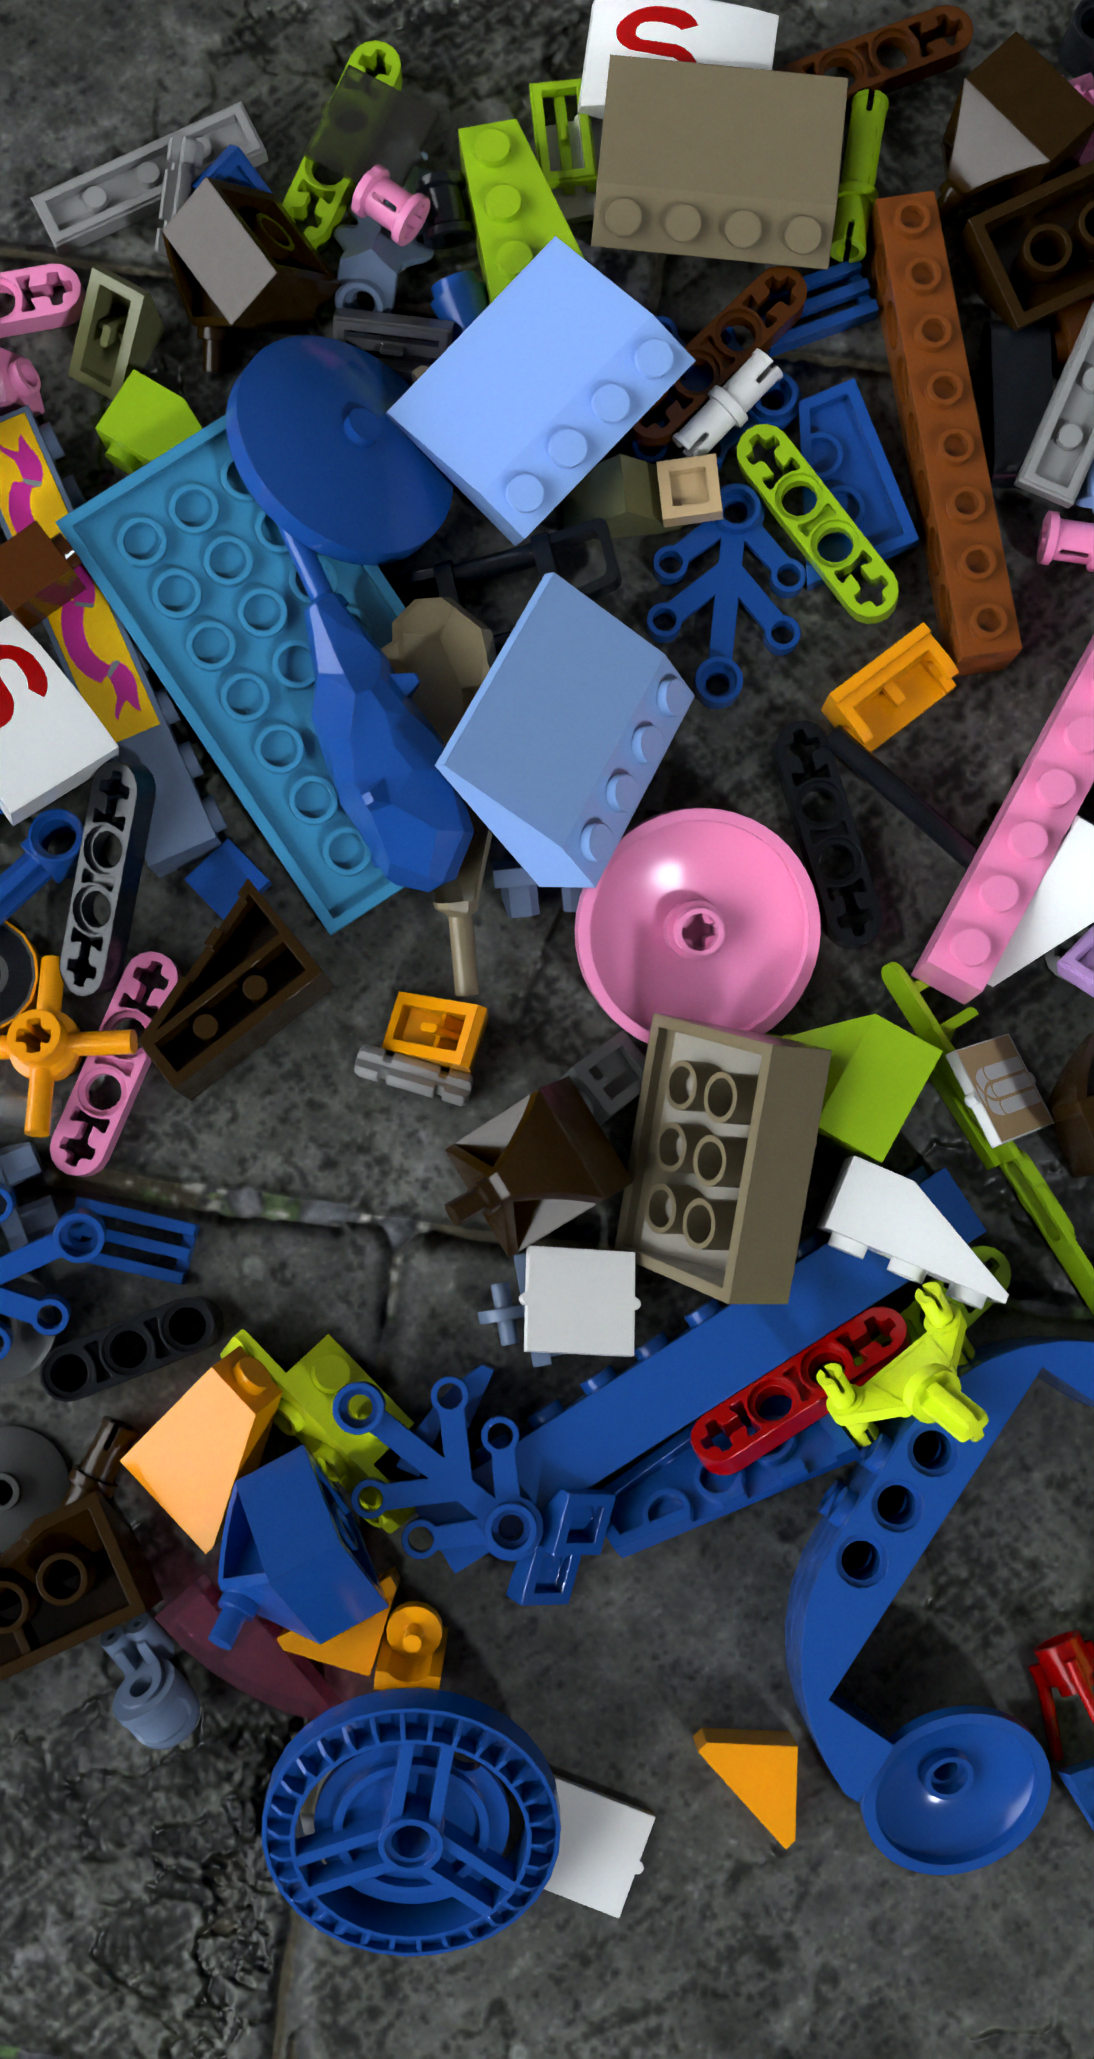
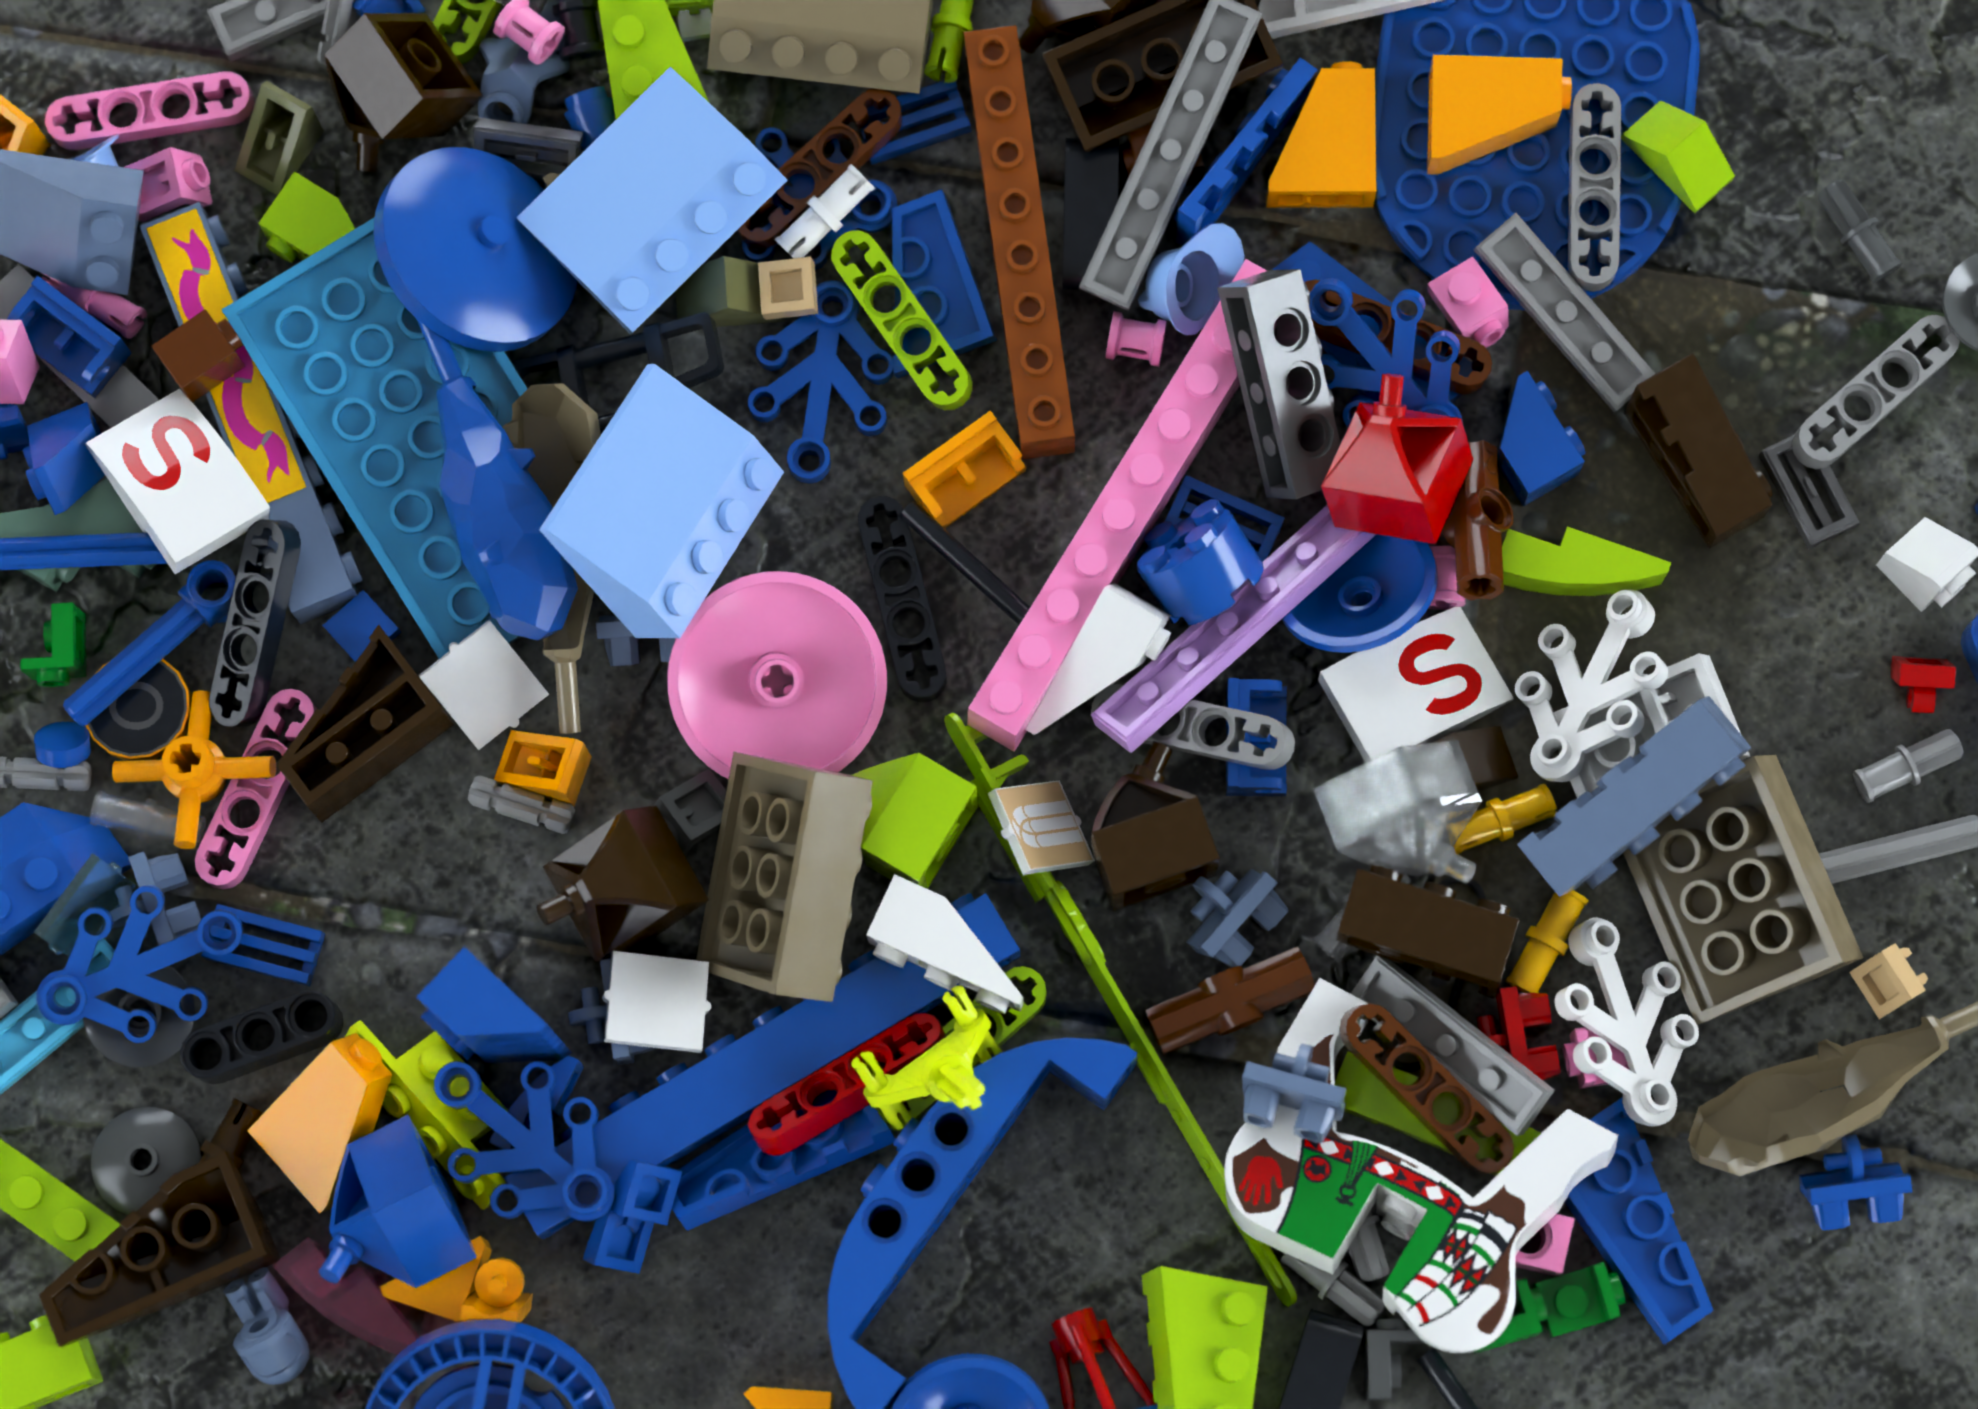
camera: 10 degrees right, 5 degrees down
(367, 941) = (483, 684): none -> white piece
(392, 1334) = (485, 1017): none -> blue slope

